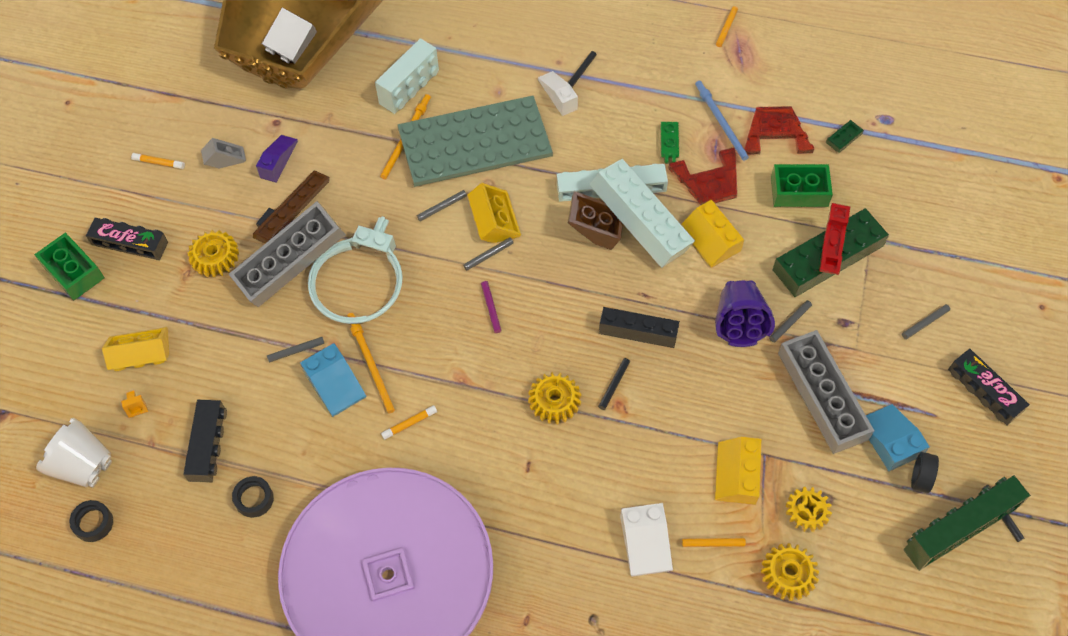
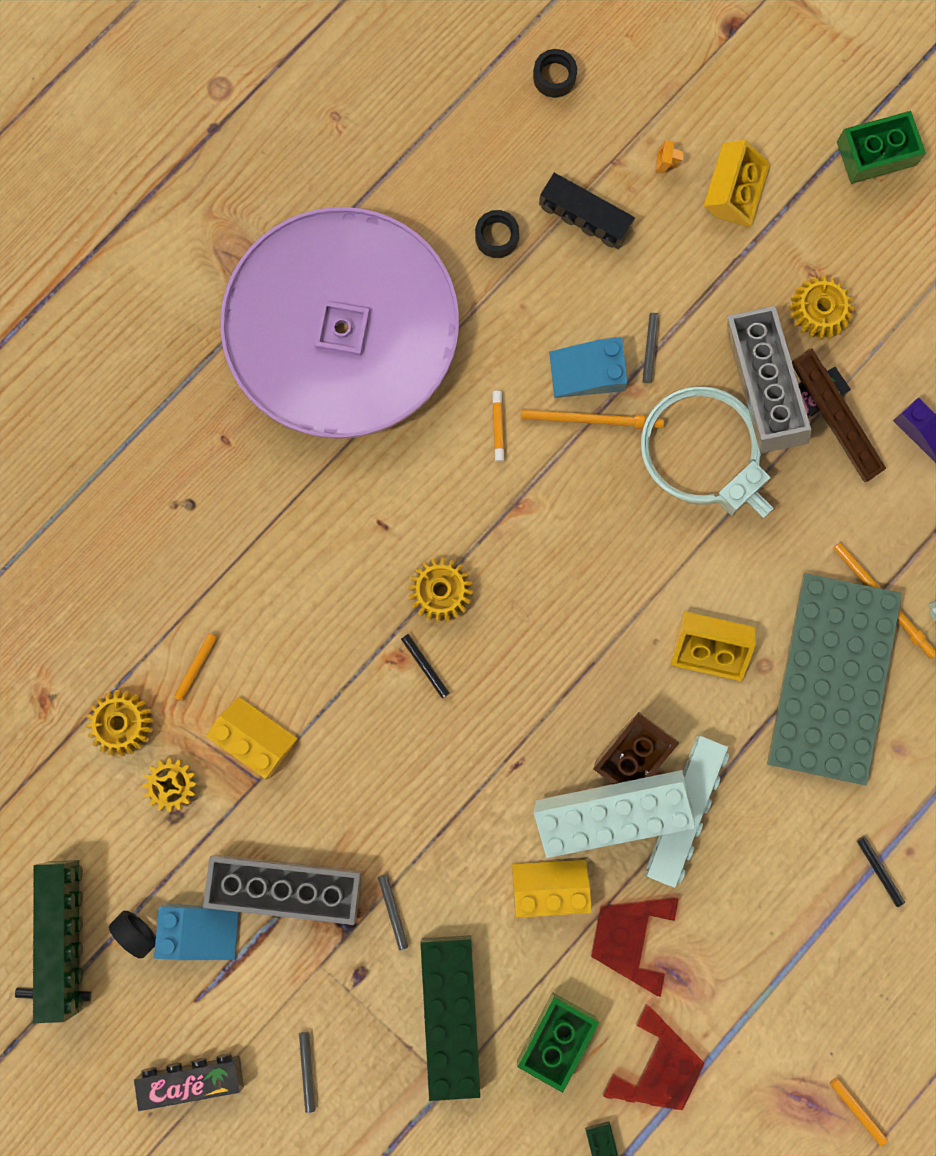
camera: 120 degrees right, 20 degrees up
(75, 456) = (629, 75): white cone -> none
(127, 238) = (890, 222): black brick -> none
(438, 207) = (759, 594): dark grey bar -> none
(487, 254) = (664, 614): dark grey bar -> none
(491, 307) = (593, 582): magenta bar -> none
(559, 92) = (859, 822): white slope -> none
(638, 327) = (474, 729): black brick -> none
(646, 539) = (234, 598): white slope -> none
(669, 141) = (713, 921): green hinge -> none
(706, 96) = (757, 1010): medium blue bar -> none
(743, 314) = (424, 855): dark purple cone -> none
(834, 239) = (450, 1021): red slope -> none

